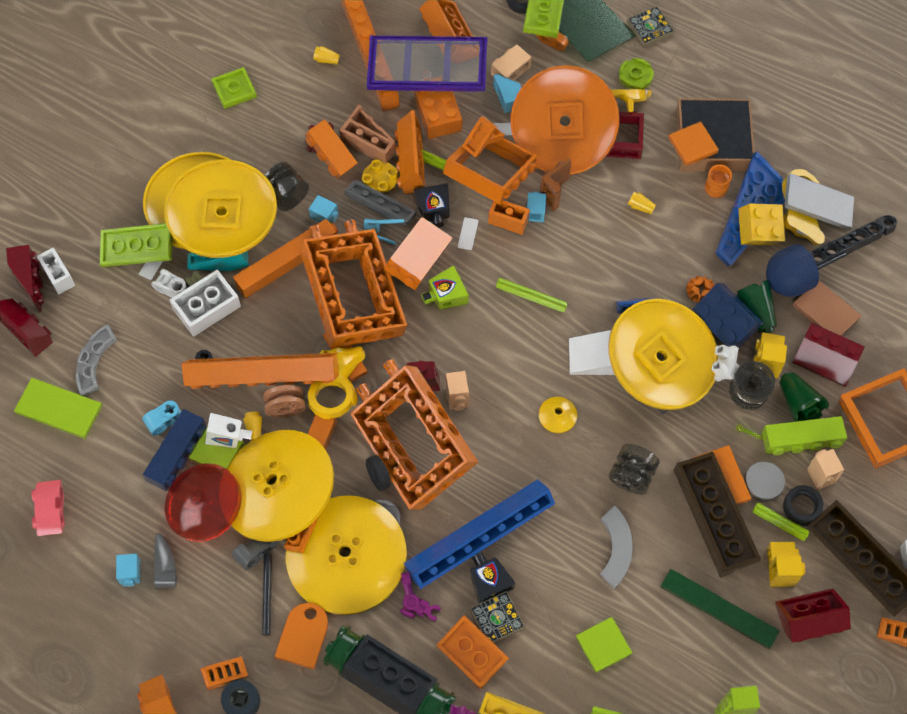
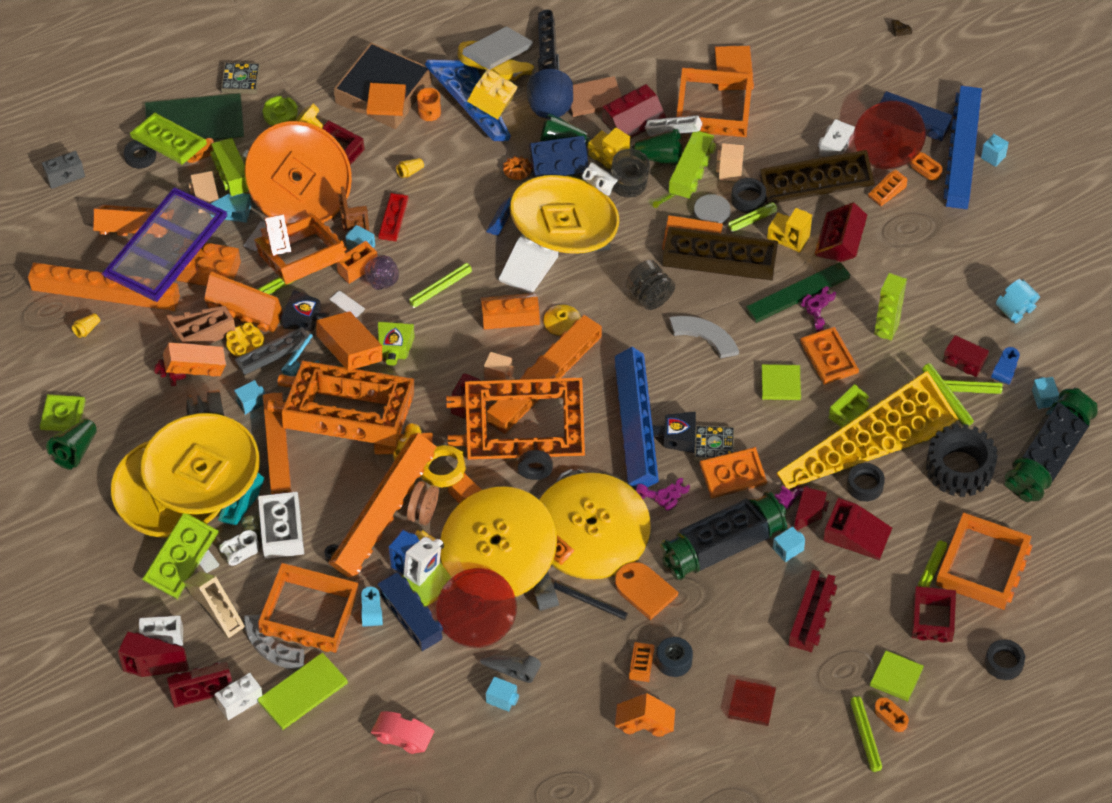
camera: 60 degrees left, 10 degrees down
(24, 361) = (238, 696): none -> white brick
(102, 289) = (211, 595): none -> tan arch
(126, 337) = (315, 581): none -> orange window
(204, 109) = (71, 444): none -> dark green cone
(226, 407) = (398, 550): none -> blue brick
(499, 432) = (551, 365): none -> orange brick
(509, 240) = (381, 272): none -> clear purple plant
(538, 364) = (510, 311): none -> orange slope
(554, 56) = (230, 166): none -> lime brick
(581, 219) = (393, 217): none -> red tile
(663, 675) = (829, 355): none -> orange tile
(714, 632) = (815, 305): none -> magenta piece
(834, 396) = (684, 124): none -> white piece

